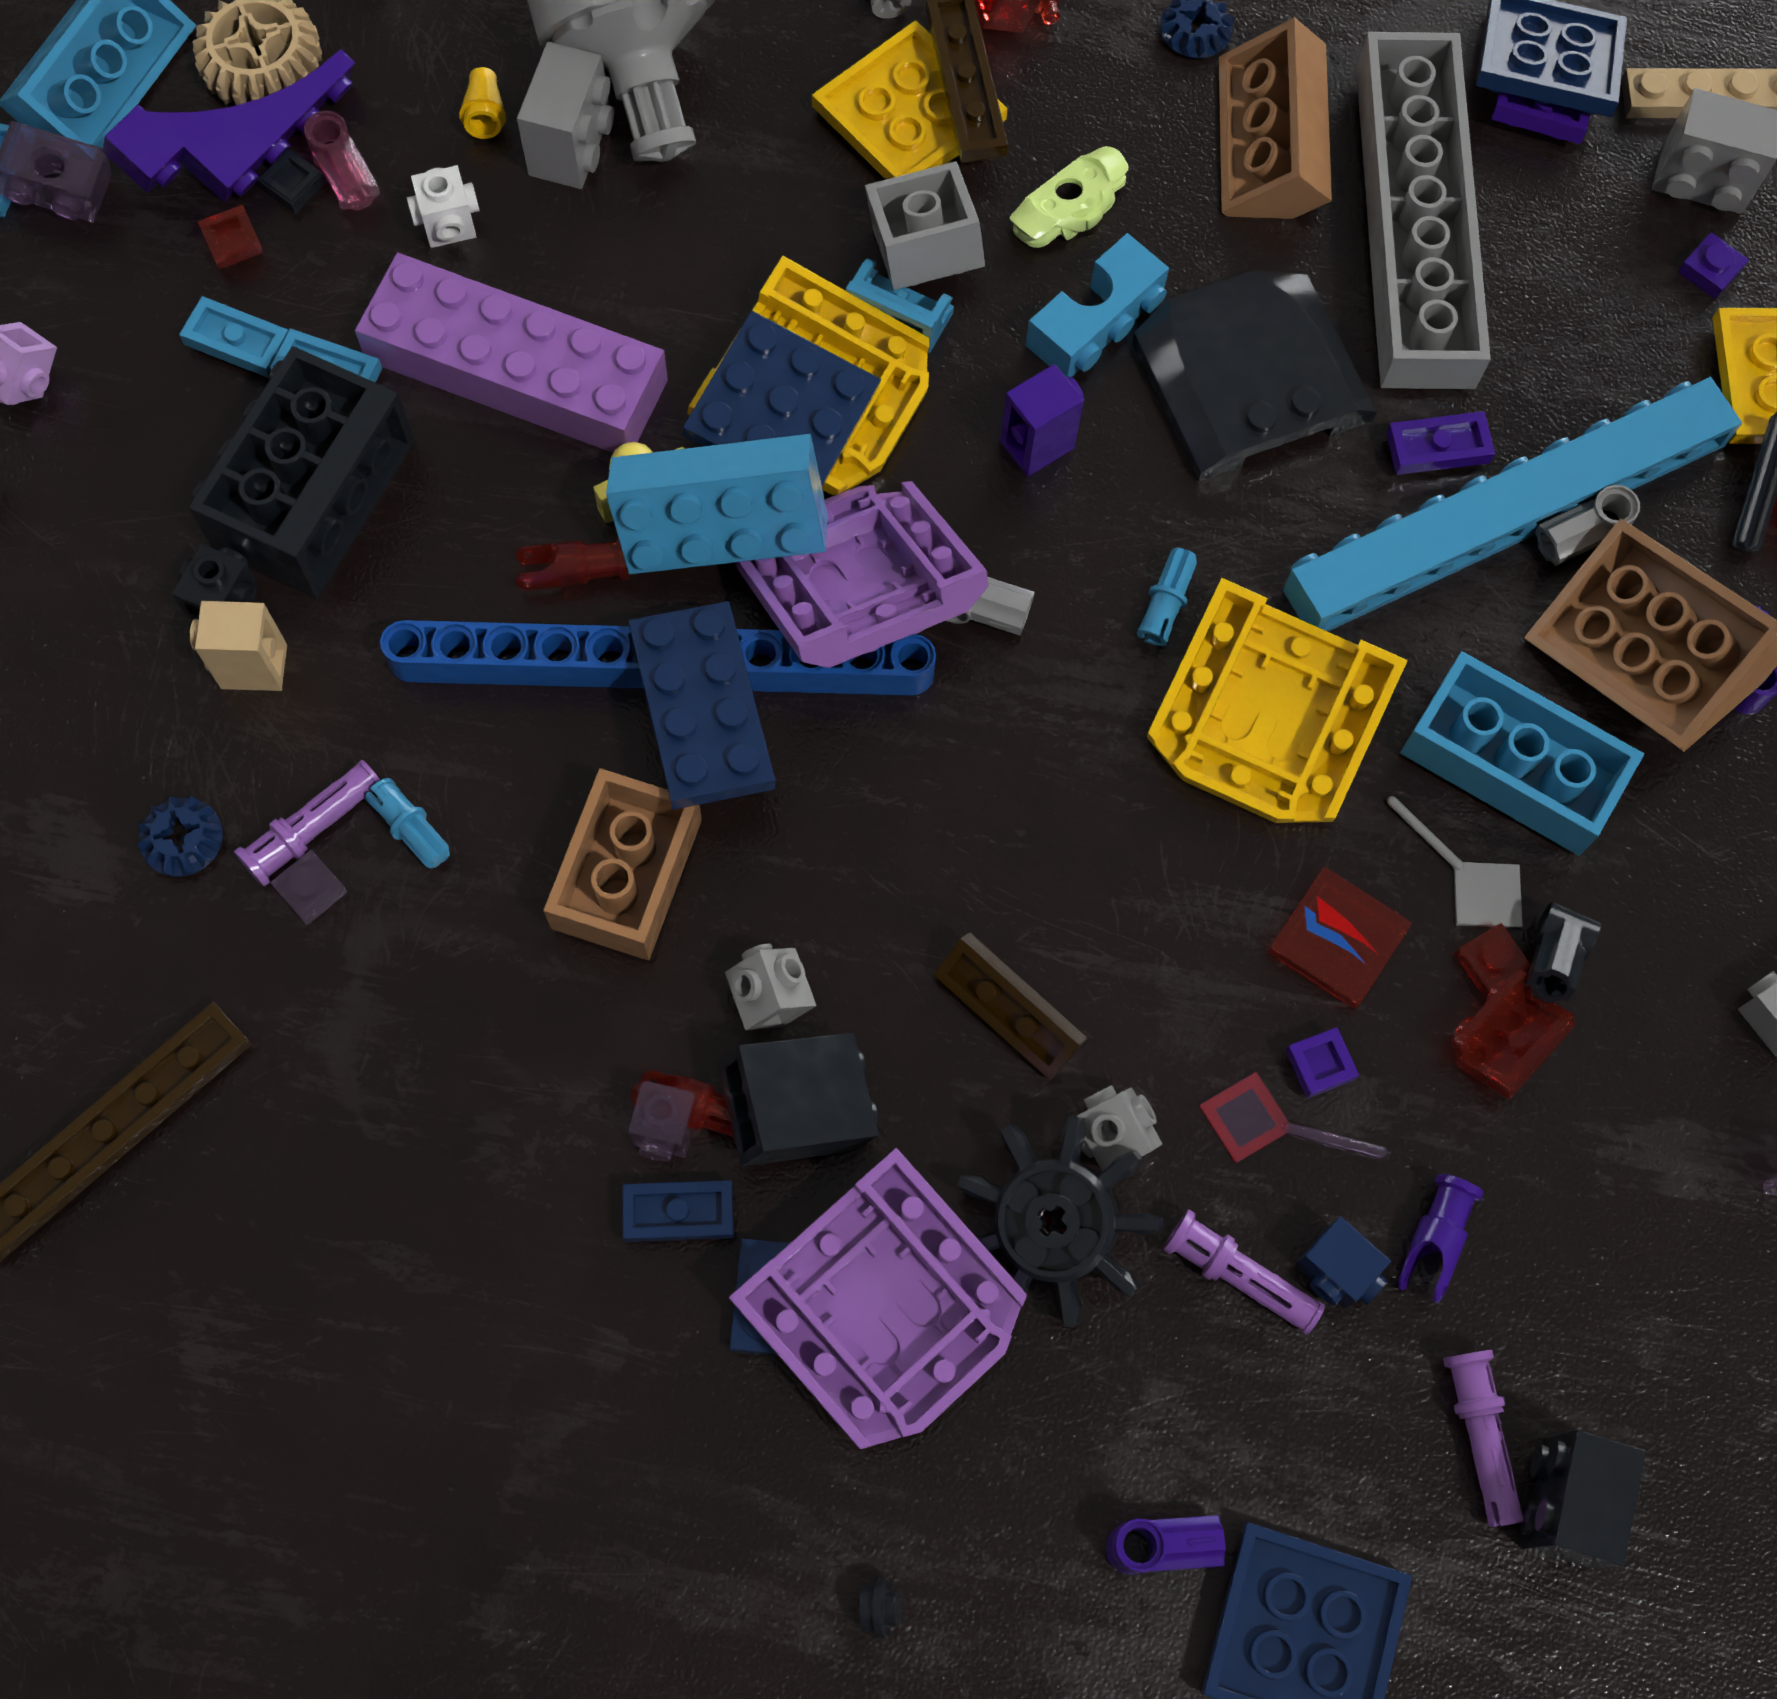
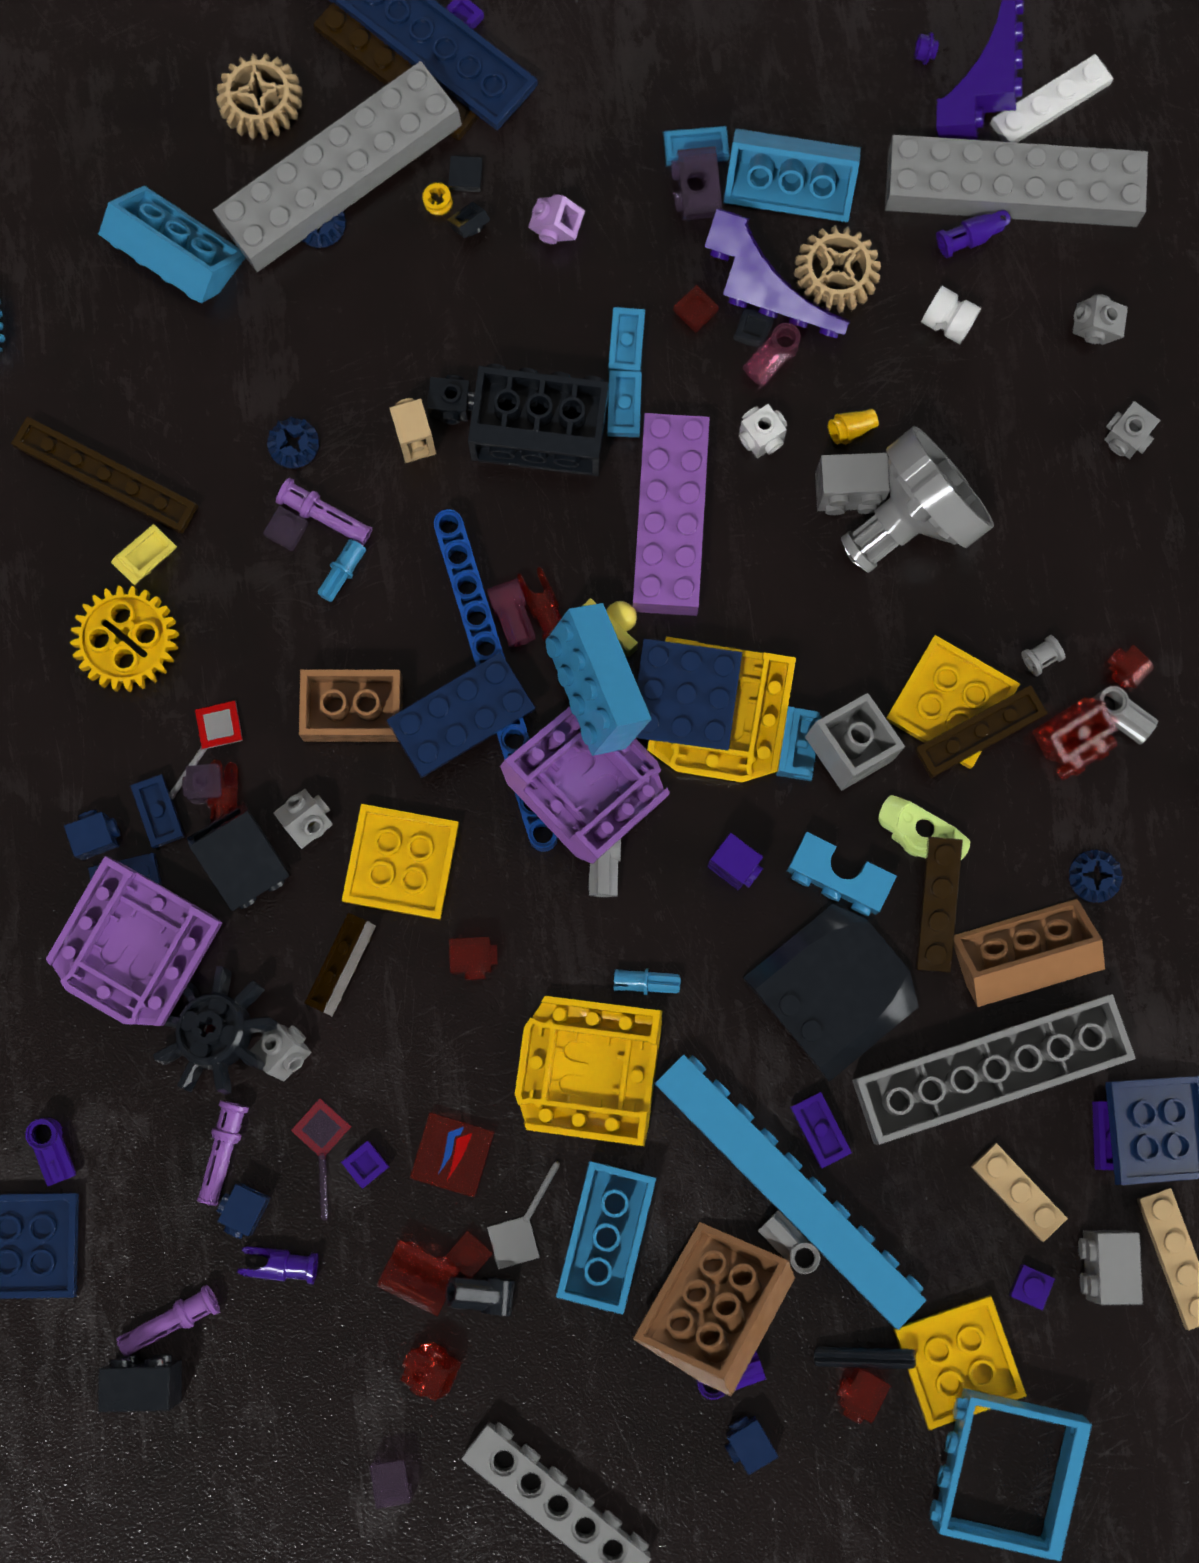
camera: 75 degrees right, 10 degrees up
(262, 1103) = (143, 554): none -> light yellow tile
(406, 1220) = (105, 660): none -> yellow gear
(554, 602) = (509, 605): none -> clear pink piece
(578, 1084) = (217, 727): none -> piece
(678, 1323) = (92, 834): none -> dark blue brick
(883, 874) = (400, 861): none -> yellow plate
(1059, 816) = (472, 957): none -> clear red brick
(1177, 204) = (939, 904): none -> dark brown plate
(1585, 241) = (1019, 1192): none -> tan plate
(1656, 1057) = (430, 1371): none -> clear red brick

